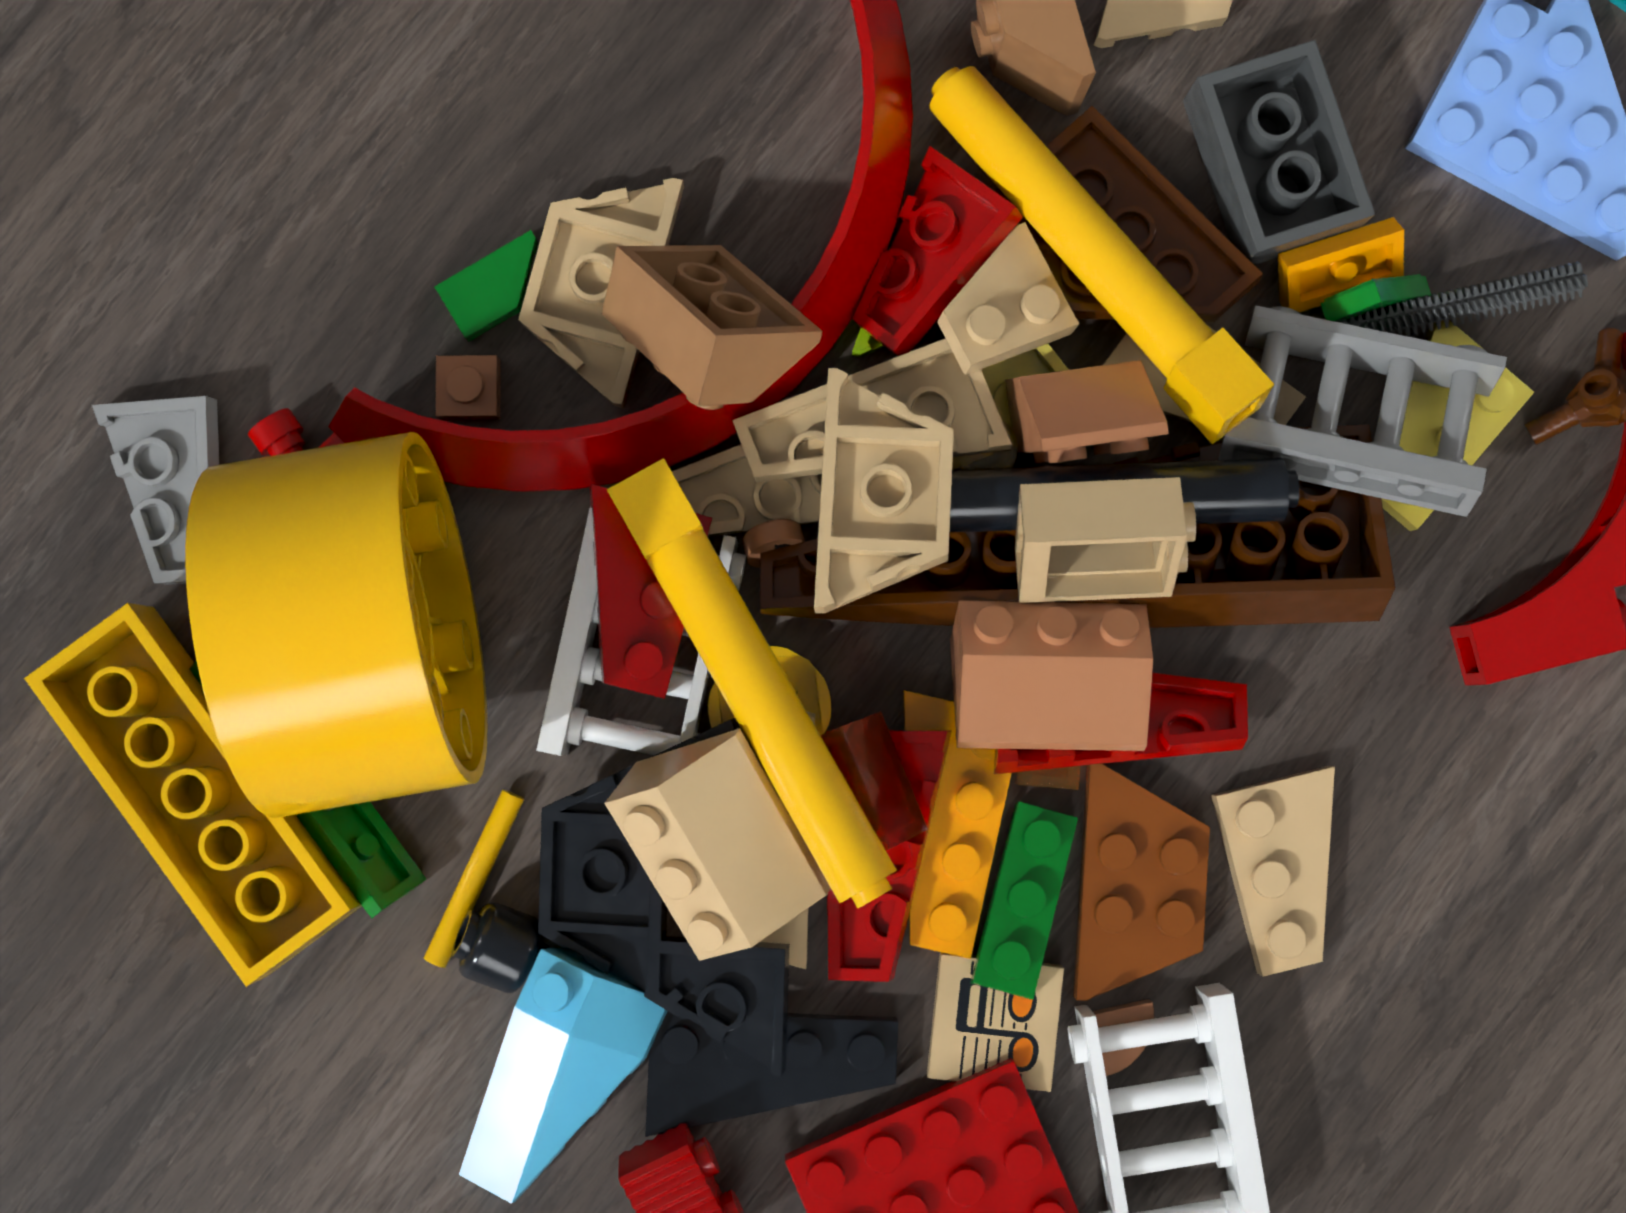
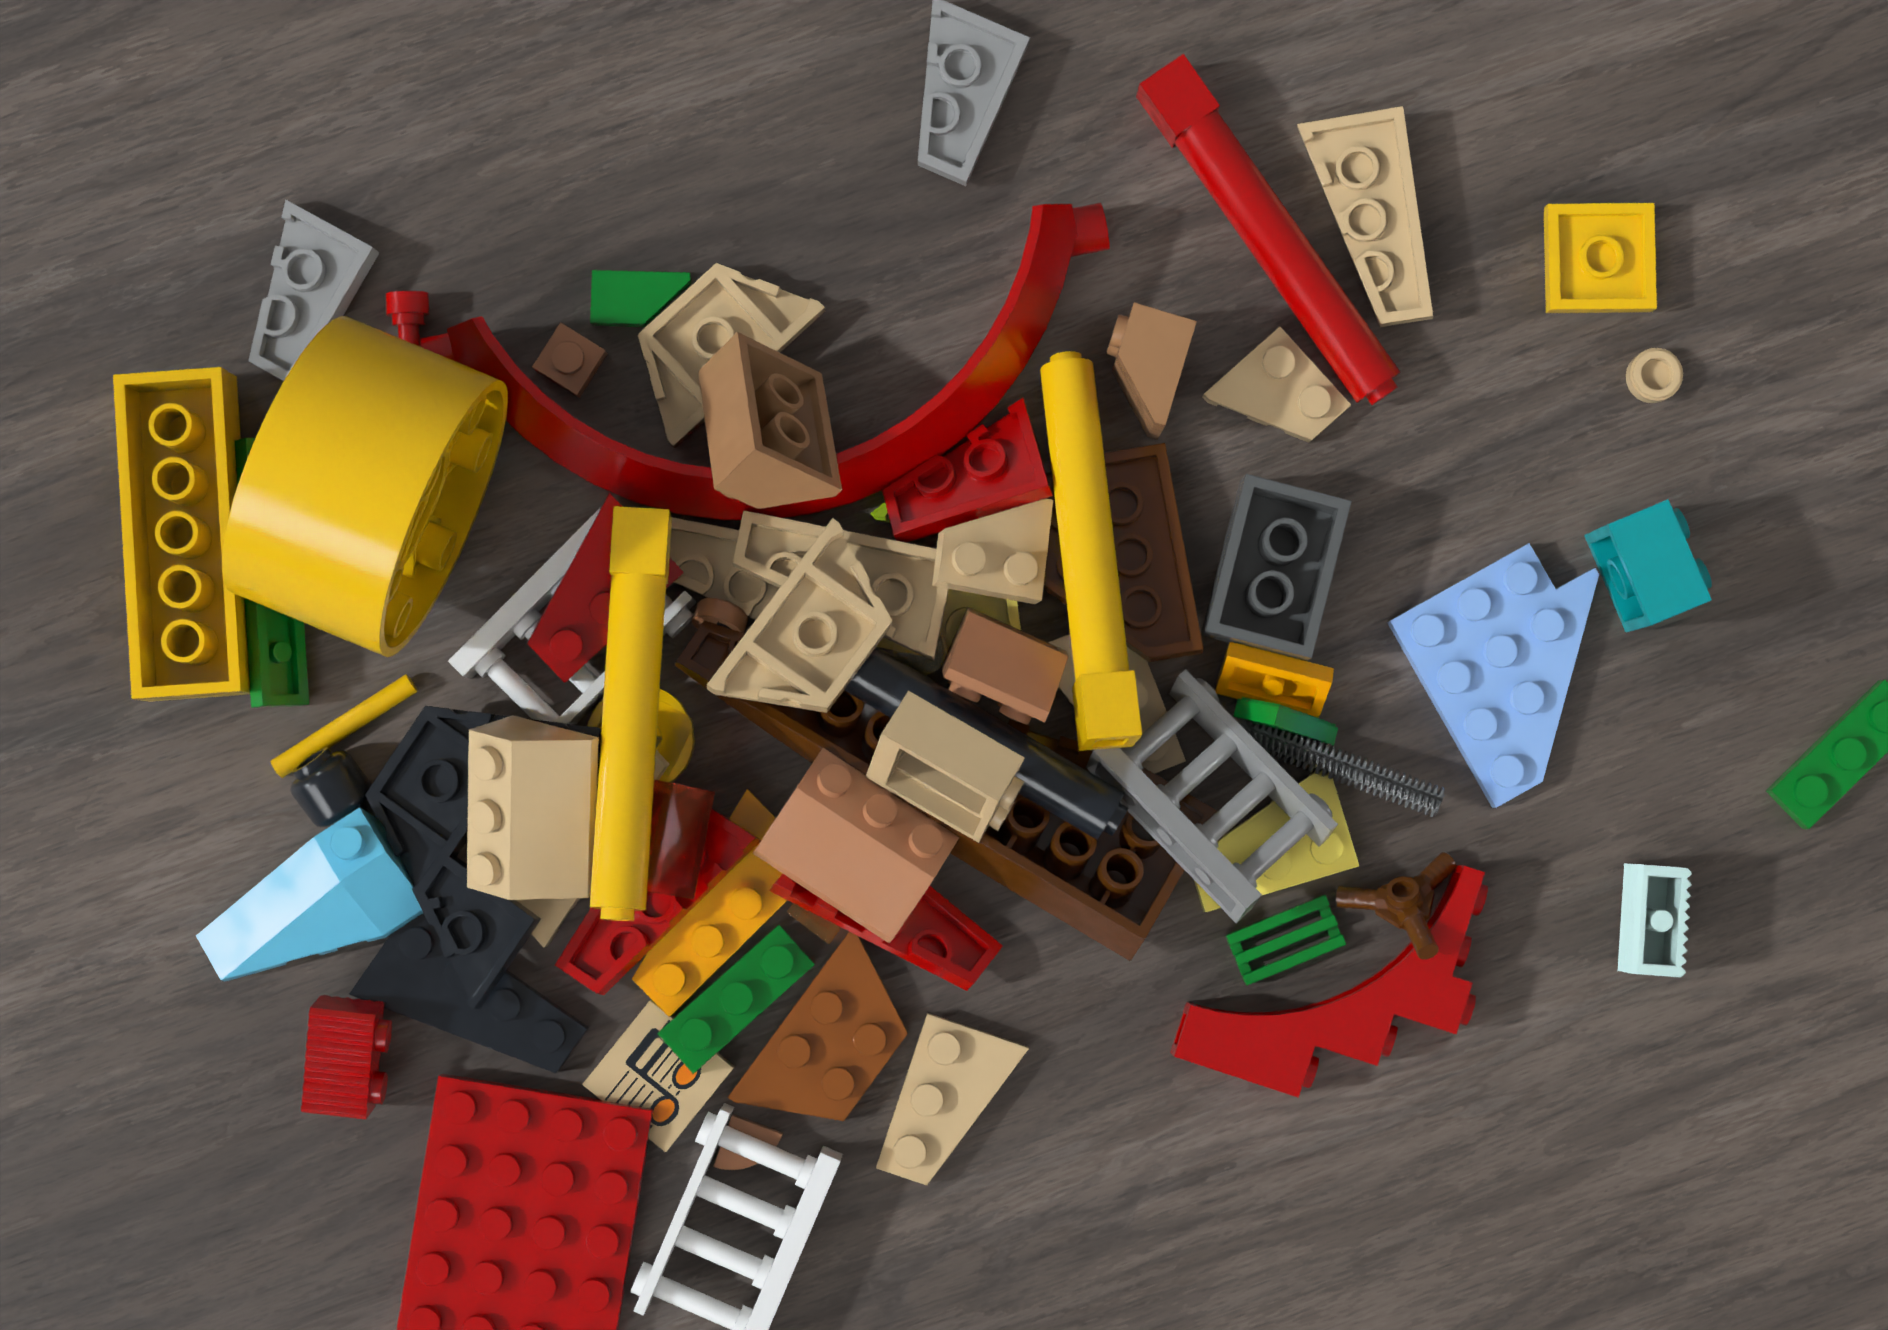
camera: 35 degrees right, 0 degrees up
(1537, 467) = (1327, 922): none -> green tile

